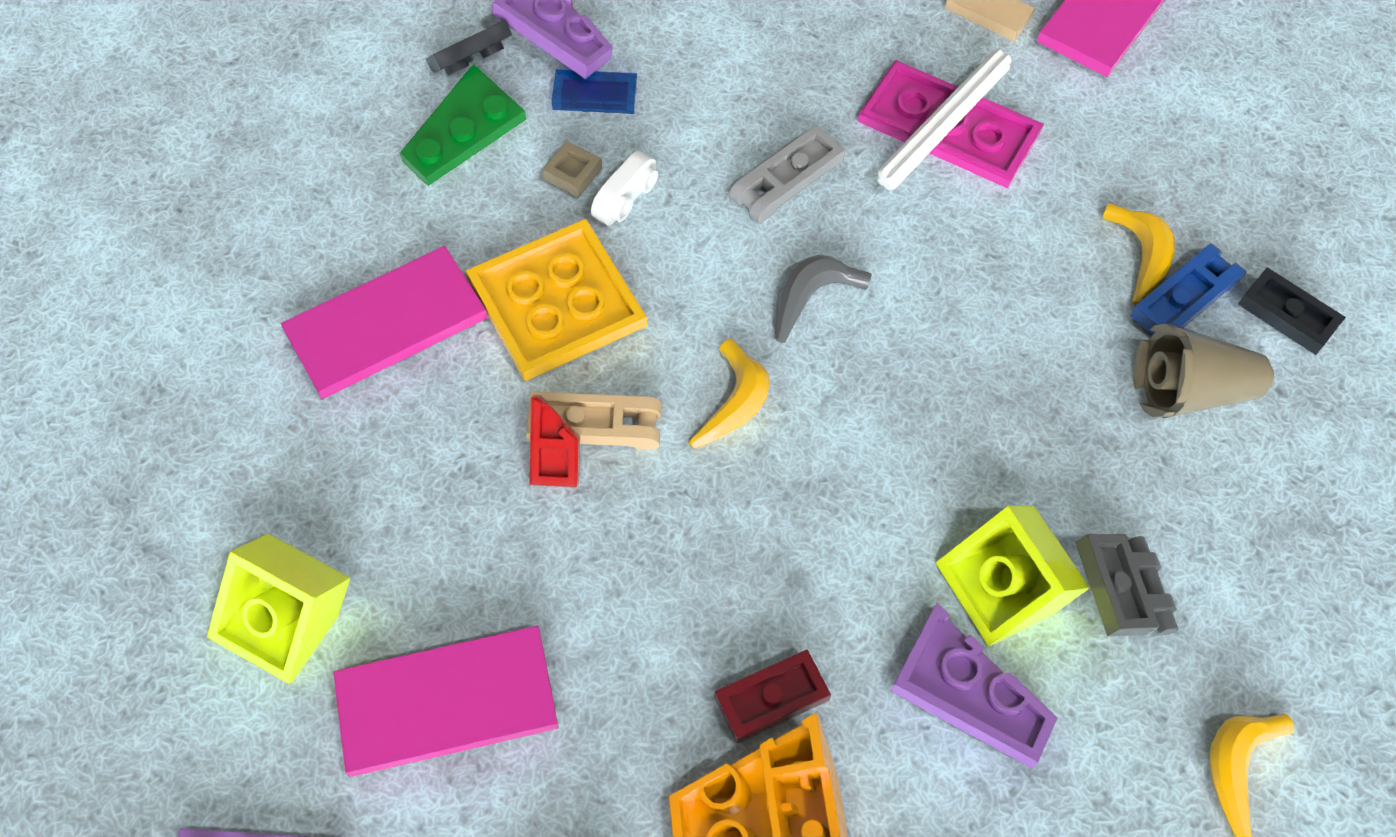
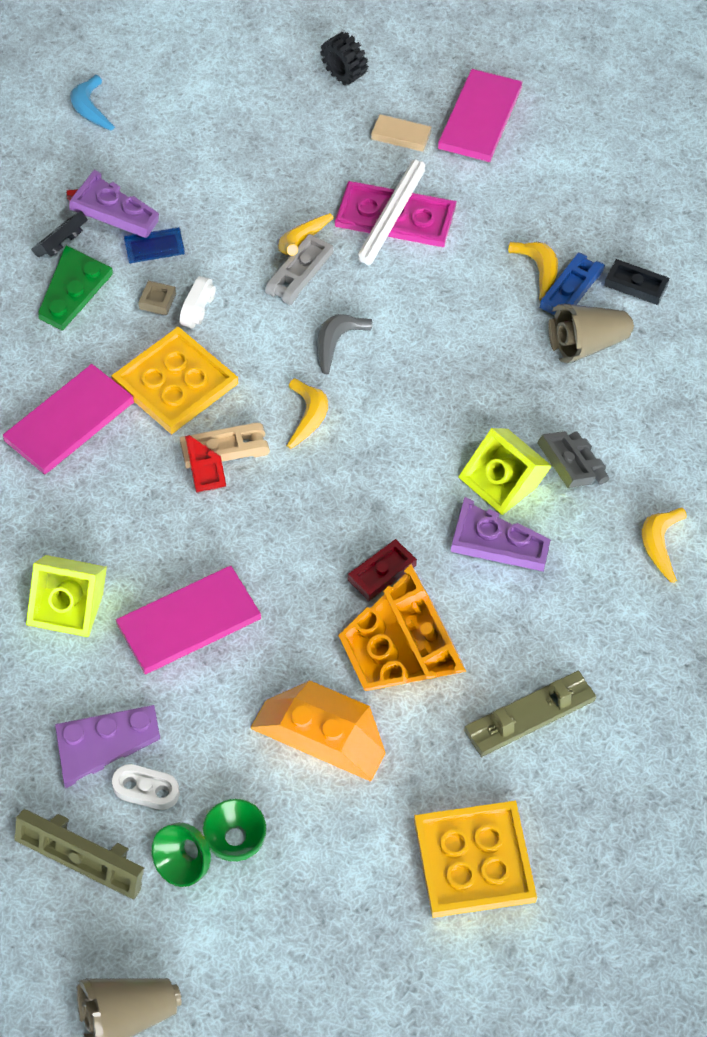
camera: 15 degrees left, 5 degrees down
(792, 125) = (290, 241): none -> yellow piece

